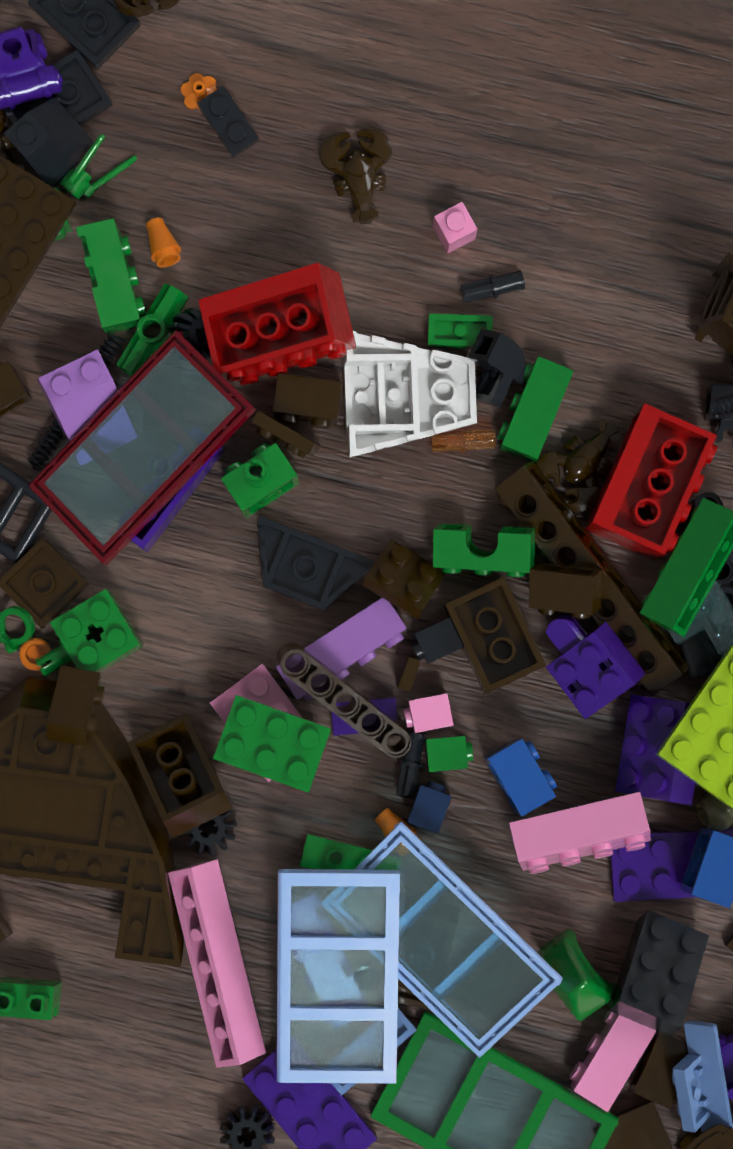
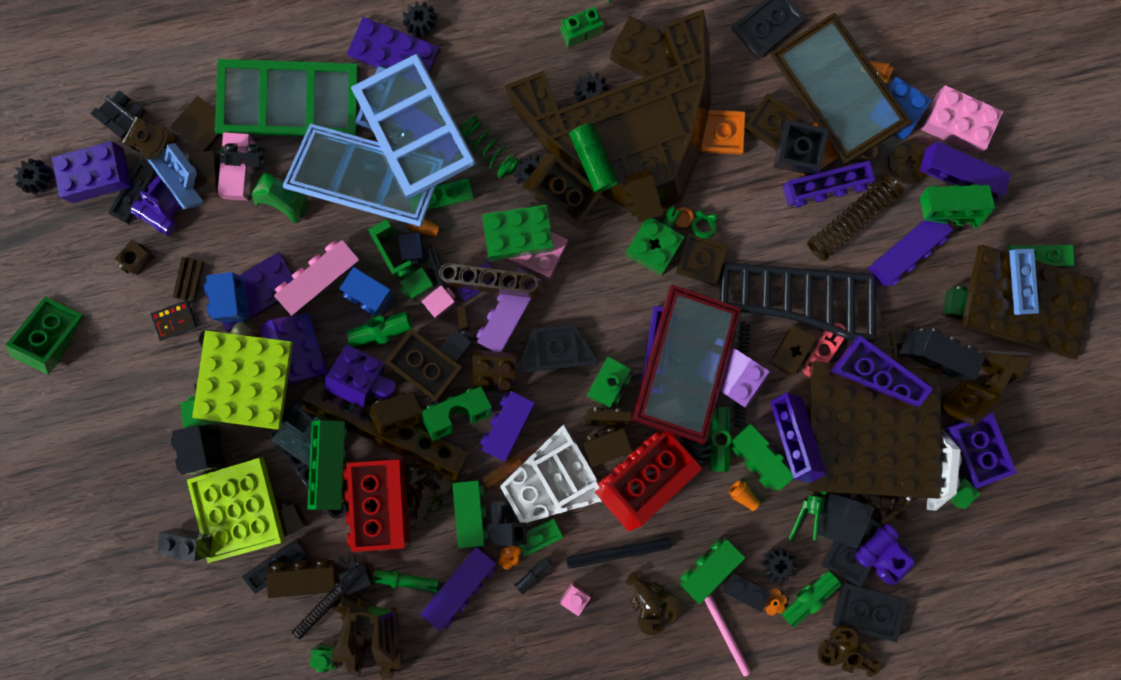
camera: 155 degrees right, 0 degrees up
(50, 274) = (798, 438): none -> dark purple brick
(71, 909) = (593, 82): none -> black gear
(112, 793) = (596, 165): none -> green piece
(150, 69) = (810, 599): none -> green piece
(164, 121) = (782, 572): none -> black gear
(217, 963) = (486, 100): bright pink brick -> none
(258, 172) = (711, 569): none -> green brick
(268, 935) = (502, 172): none -> green piece
(282, 94) = (727, 635): none -> bright pink bar
(366, 257) = (618, 552): none -> black axle
(425, 494) = (507, 426): none -> dark purple brick
(466, 848) = (381, 233): none -> green panel
(513, 325) = (509, 557): none -> orange plant
(530, 717) = (379, 329): none -> green piece
(600, 320) = (458, 588): none -> dark purple brick
(609, 1072) = (234, 153): none -> black hinge
(659, 973) = (231, 223): black brick -> none
(665, 368) = (404, 580): none -> green pin

